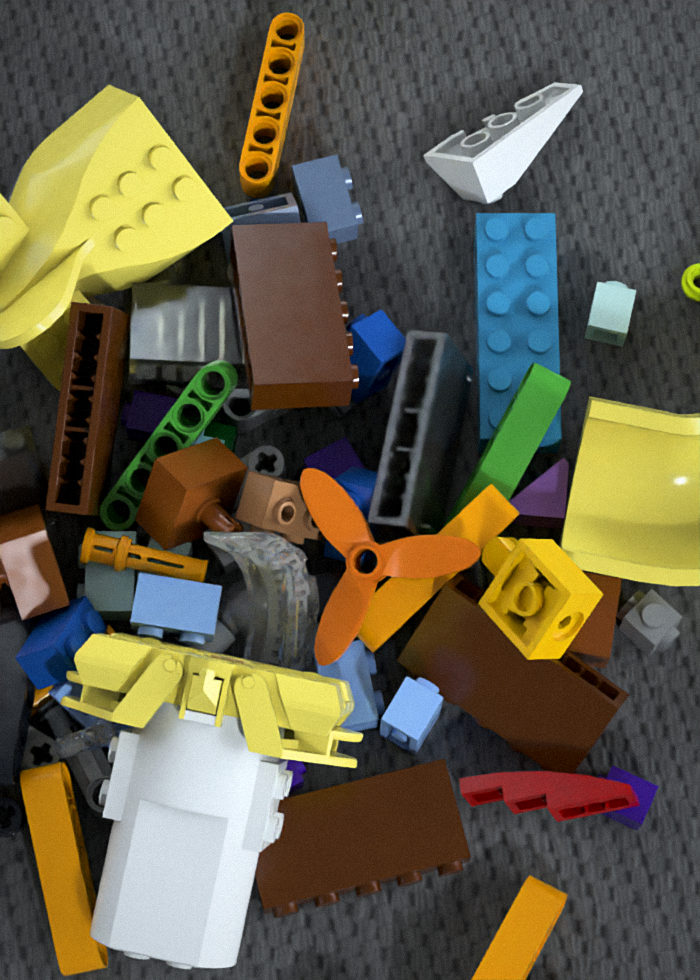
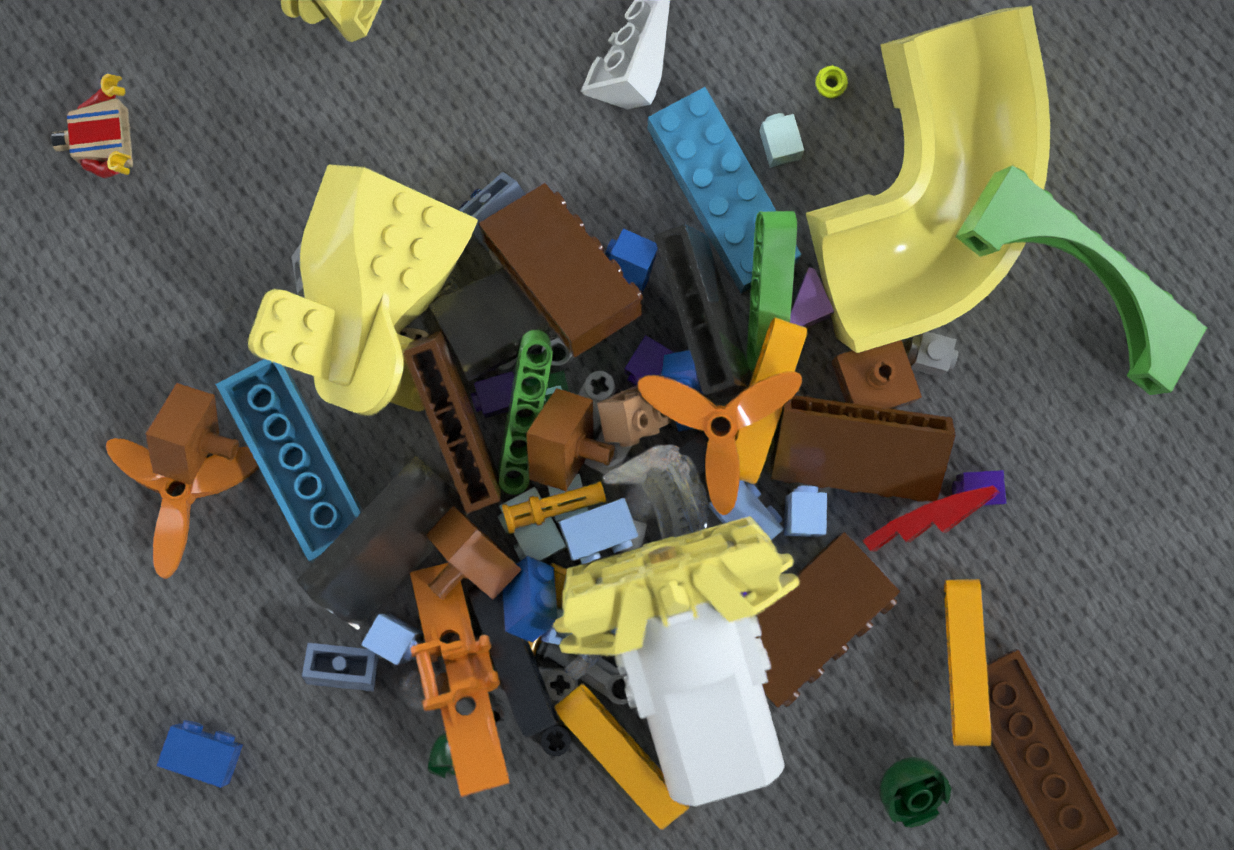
camera: 25 degrees left, 10 degrees up
(272, 88) = (445, 97): light orange beam -> none
(325, 197) = (529, 162): sand blue brick -> none
(536, 595) = (855, 384): yellow brick -> none

